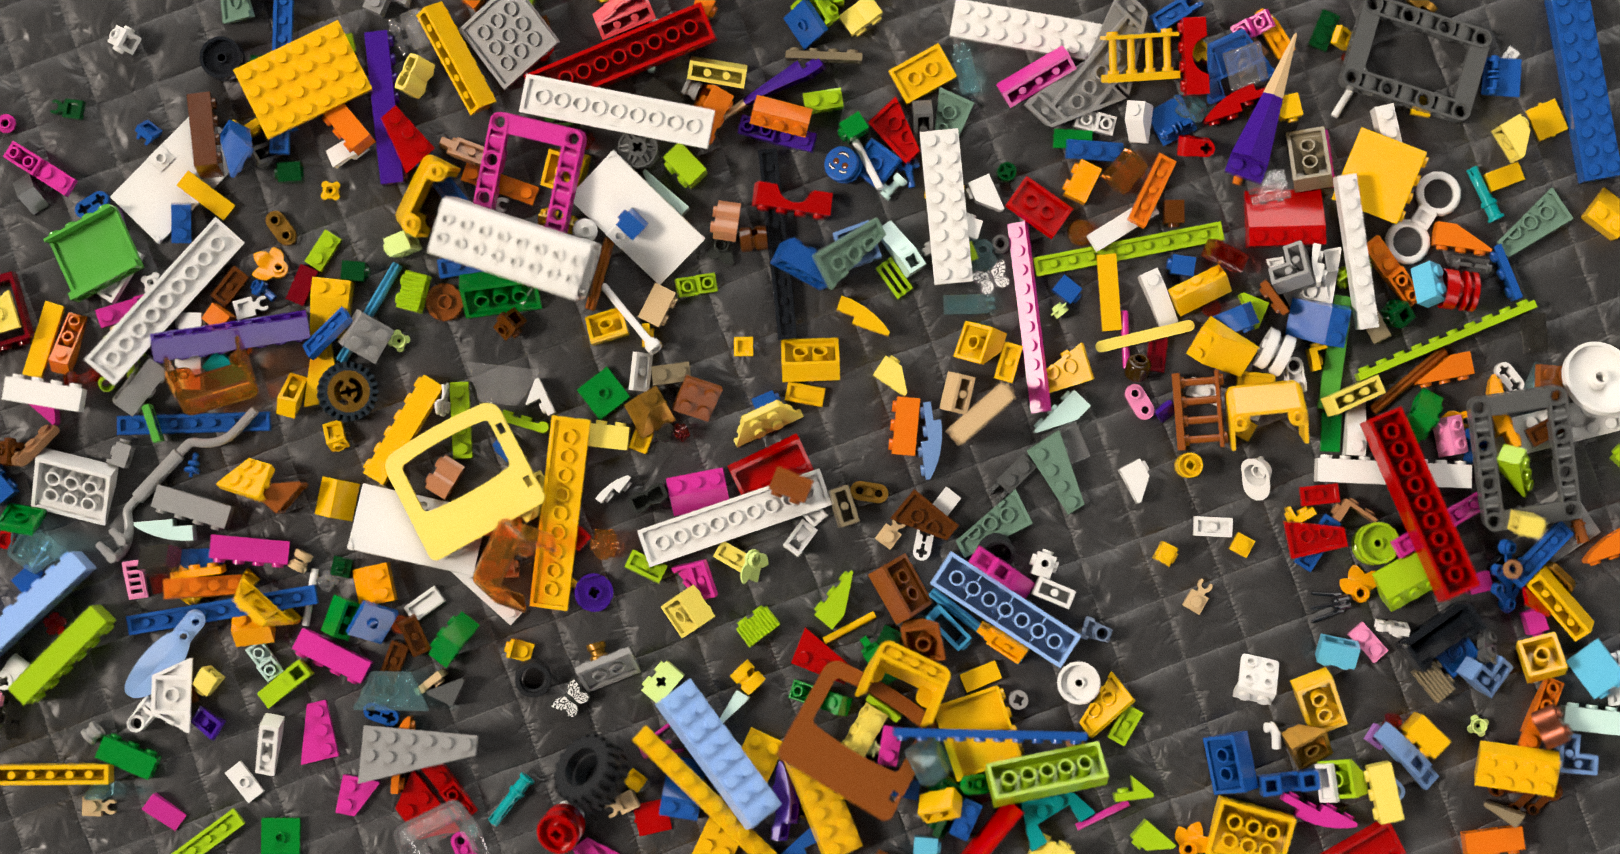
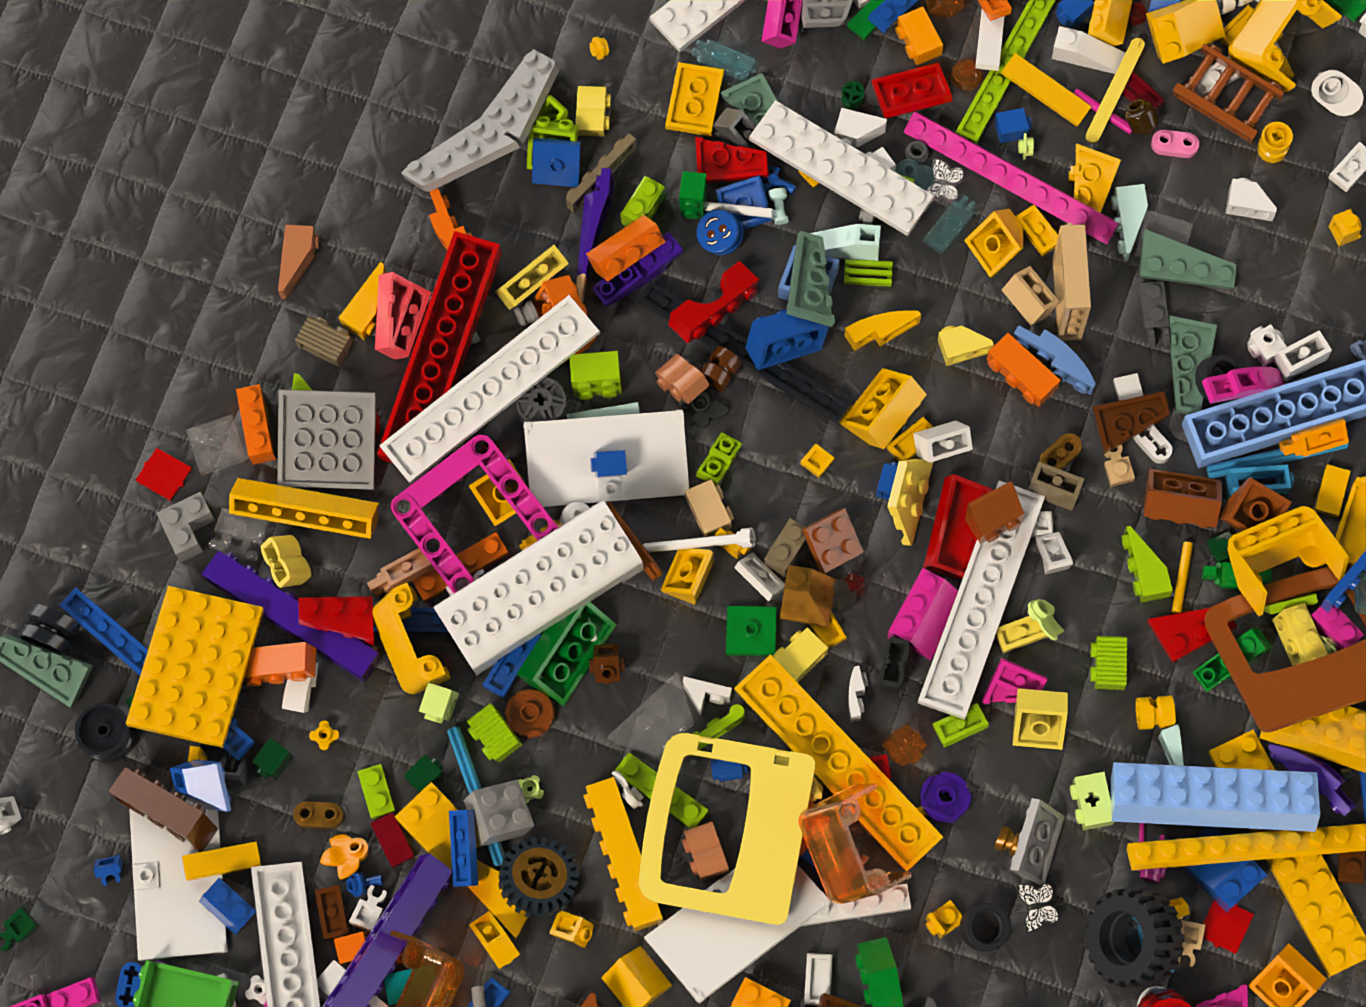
camera: 45 degrees left, 15 degrees down
(815, 415) = (943, 441): none -> white brick
(1164, 411) = (1202, 126): dark purple slope -> none

